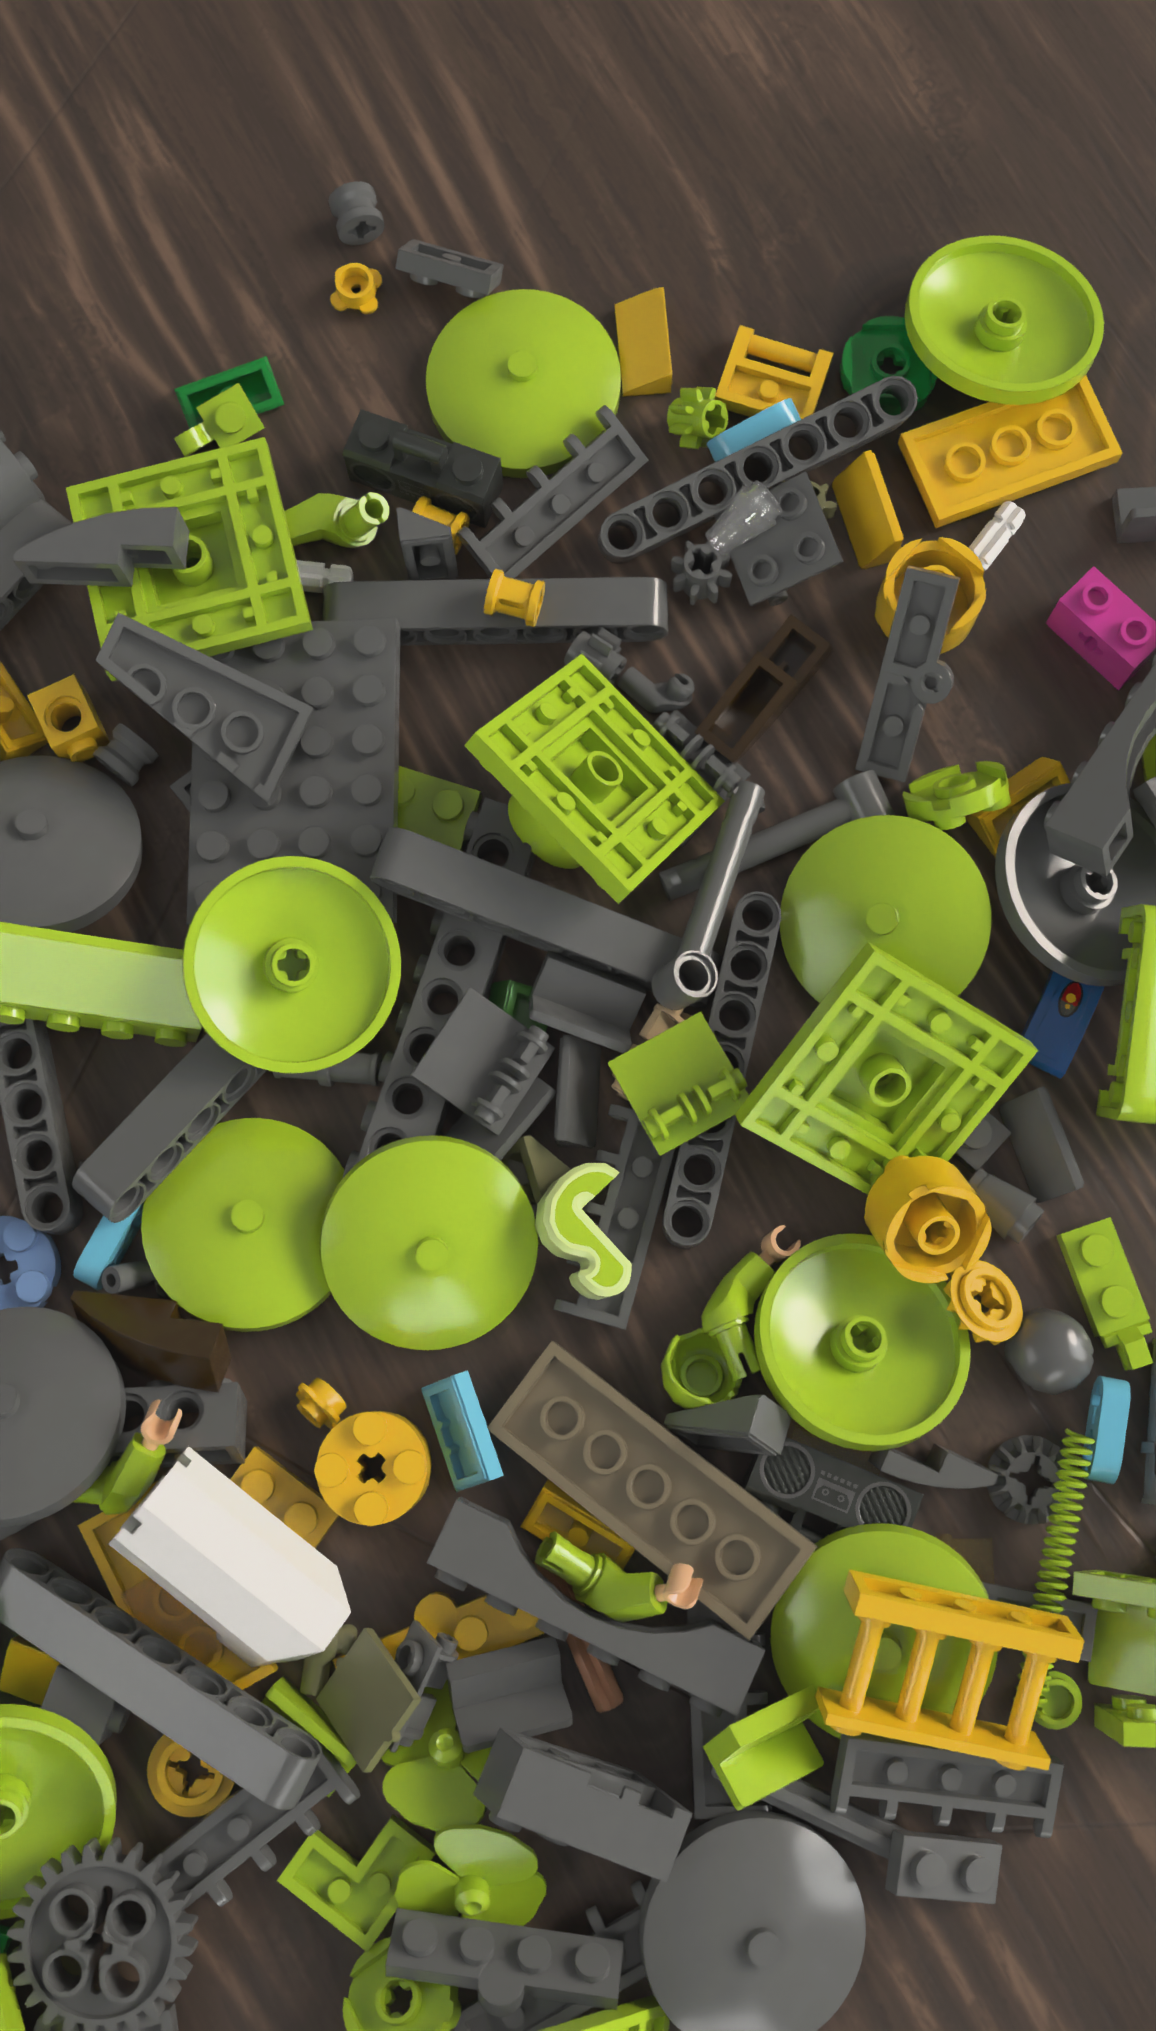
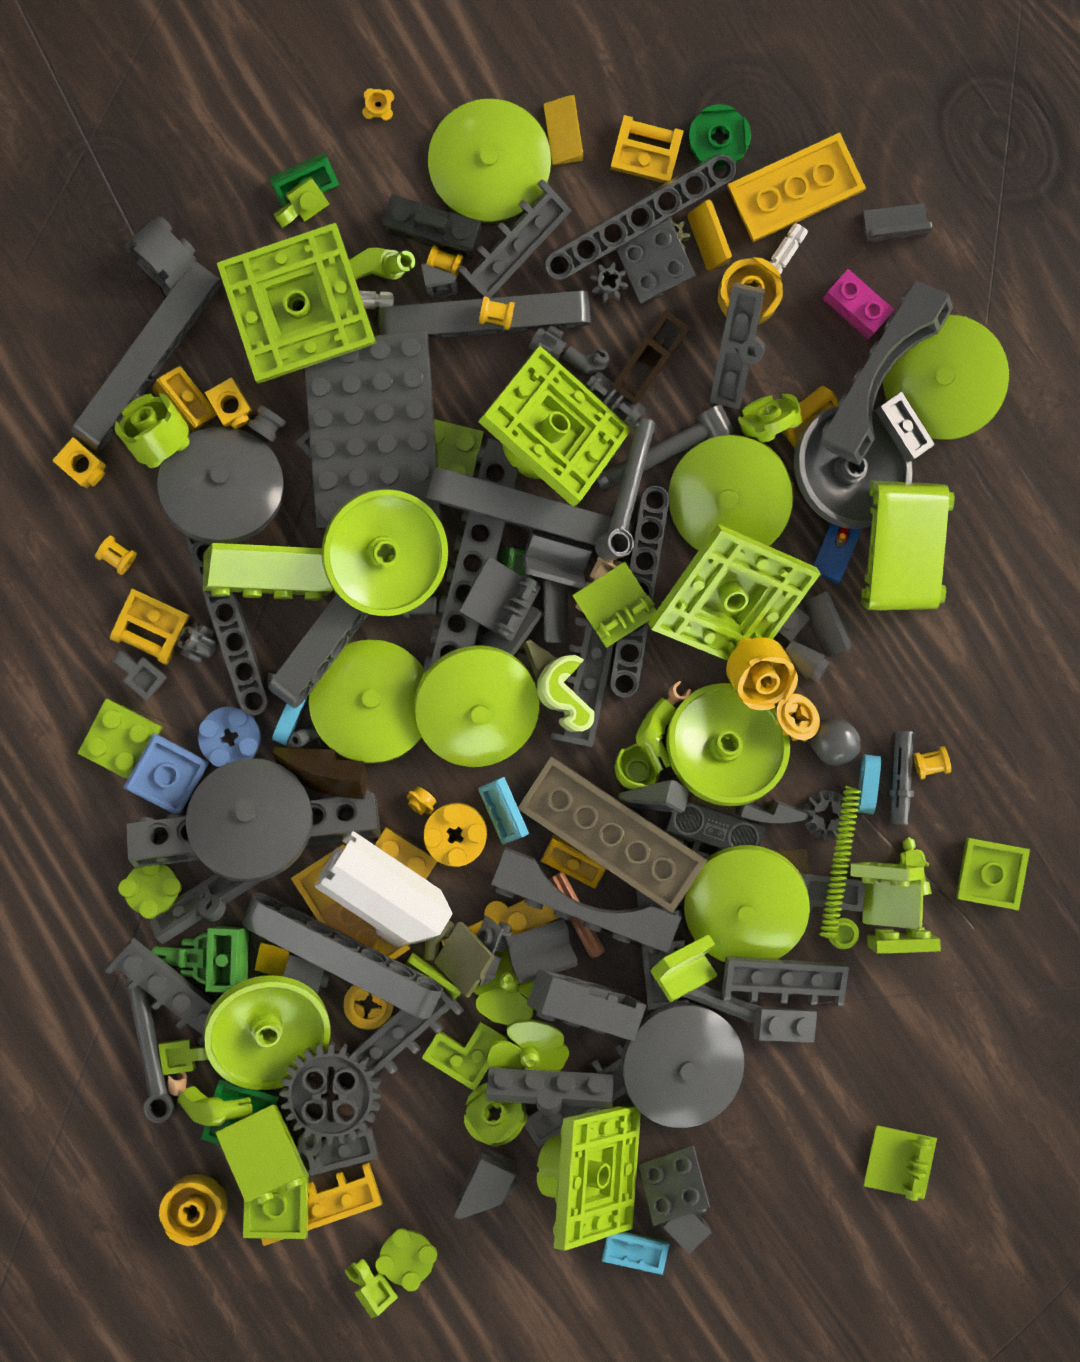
camera: 10 degrees left, 10 degrees up
(107, 548) = (249, 305): dark grey slope -> none
(131, 1476) = (322, 847): lime arm -> none
(217, 707) = (327, 400): dark grey wing -> none
(356, 213) = (374, 53): dark grey wheel -> none
(434, 263) = (436, 86): dark grey plate -> none
(612, 1591) = (594, 892): lime arm -> none
(697, 416) = (600, 181): lime gear -> none
(745, 517) = (635, 251): clear cone -> none
(753, 429) = (636, 190): medium azure beam -> none
(934, 1616) = (771, 893): yellow fence -> none
(1004, 320) = (789, 104): lime dish -> none
(1108, 1290) = (868, 704): lime hinge -> none

